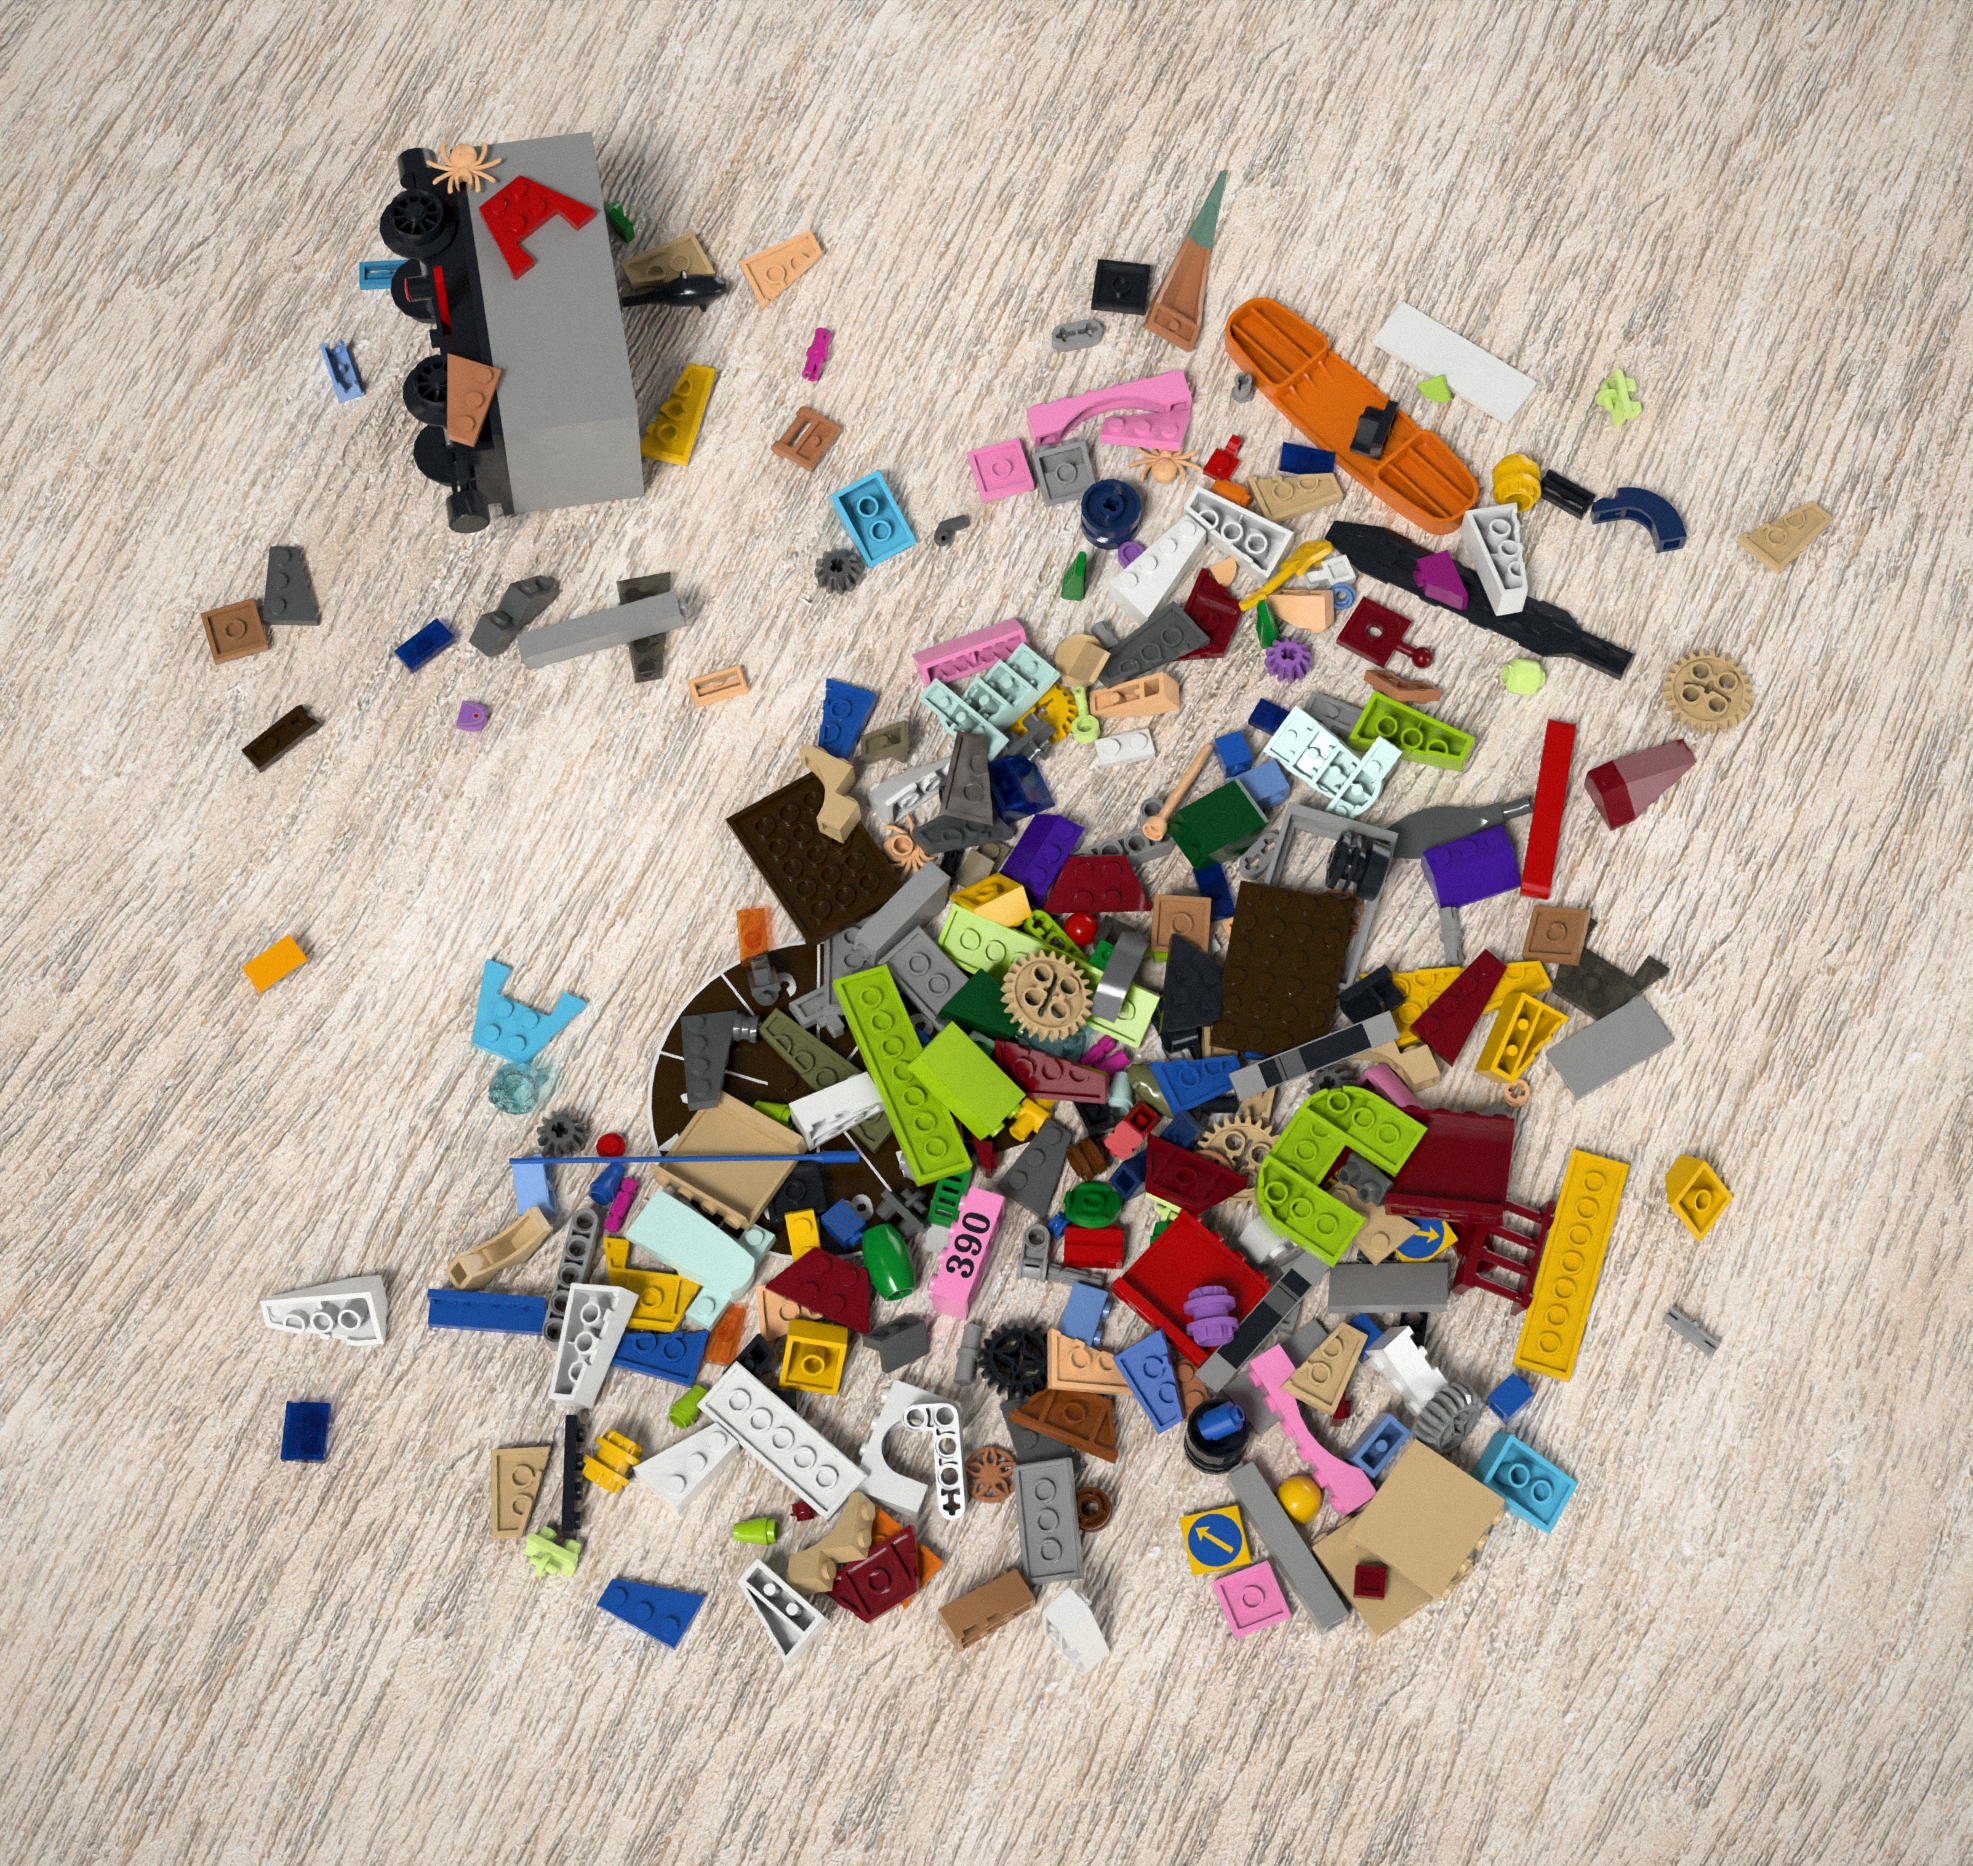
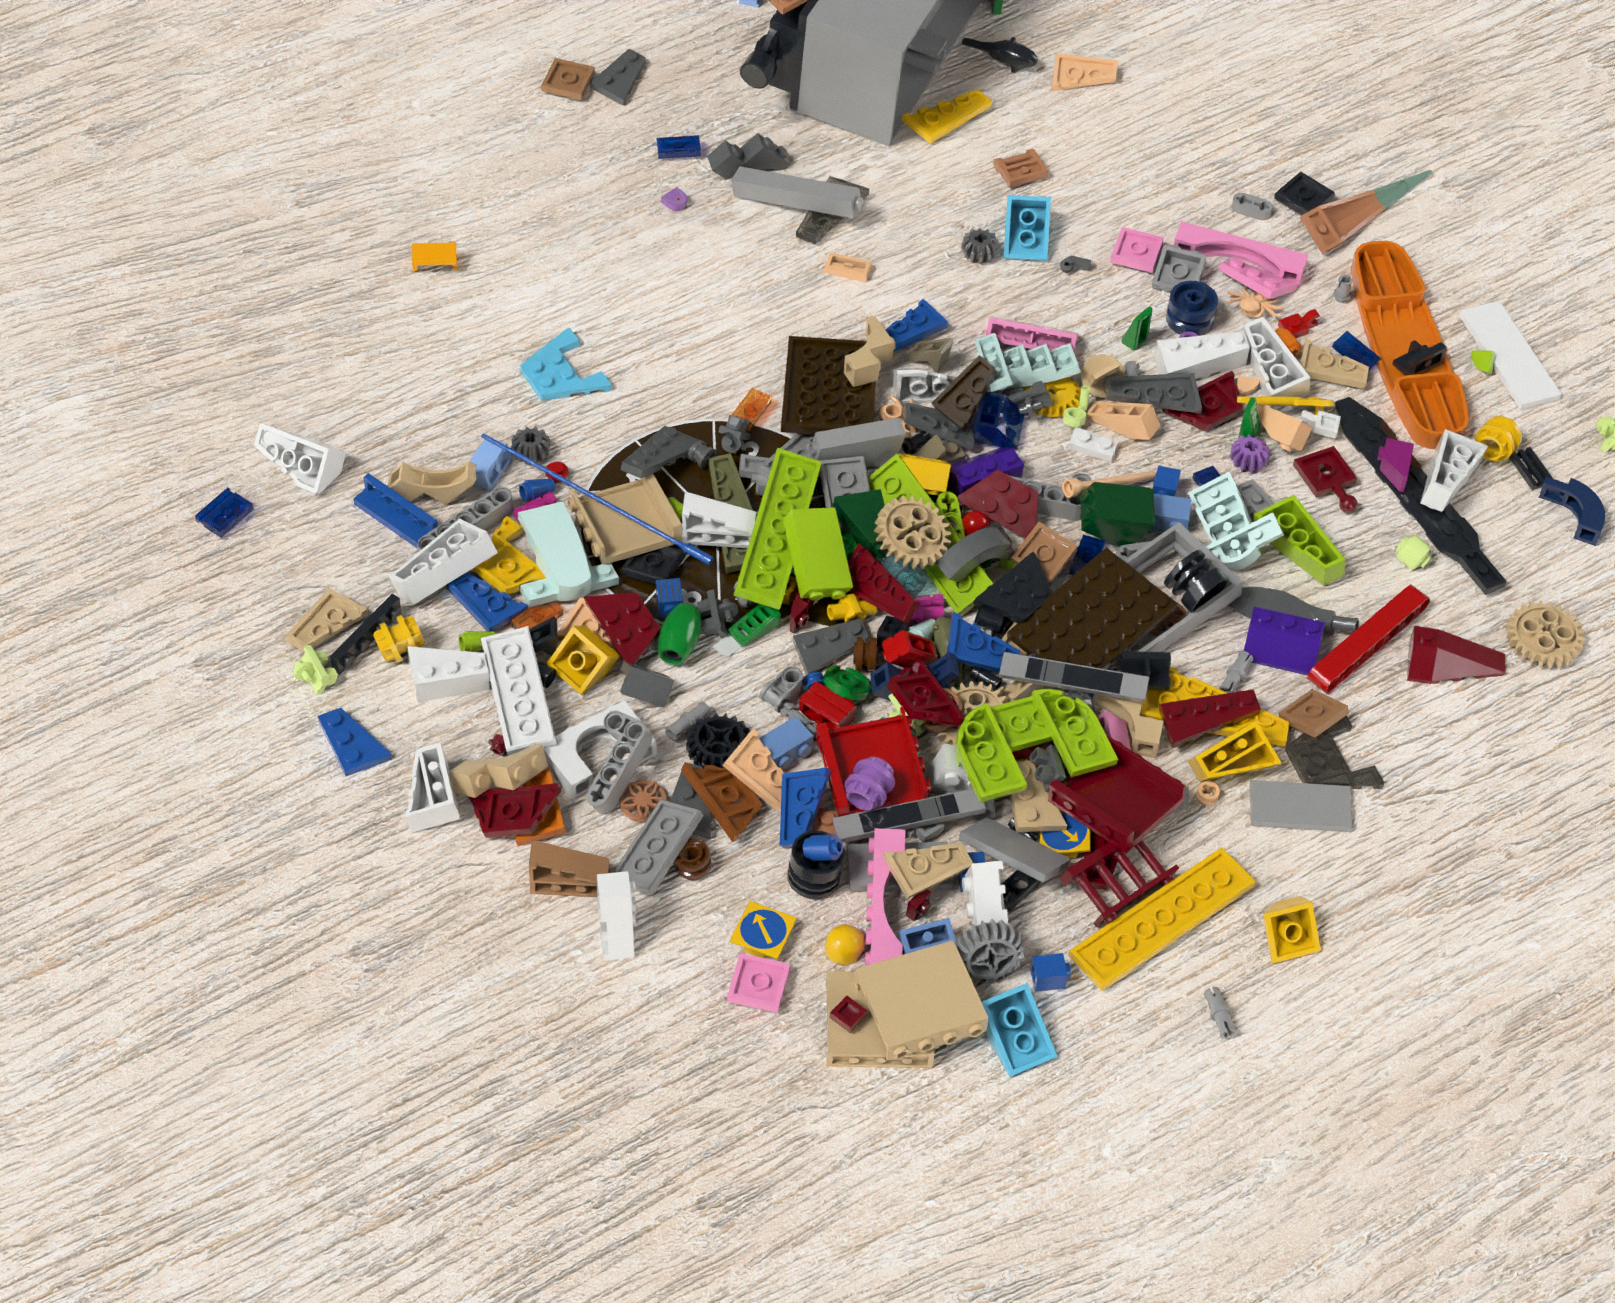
camera: 30 degrees right, 15 degrees down
(280, 738) = (546, 146): dark brown plate -> none
(517, 1087) = (525, 401): clear light blue helmet -> none
(666, 262) = (998, 30): tan wing -> none
(757, 1531) = (460, 738): lime cone -> none
(802, 1232) = (639, 581): yellow plate -> none
(816, 354) = (1066, 128): dark pink pin -> none
(968, 1252) = (736, 658): bright pink brick -> none
(1286, 1547) = (810, 966): light grey brick -> none
(1345, 602) = (1311, 440): medium blue plate -> none
(1402, 690) = (1315, 508): nougat plate -> none

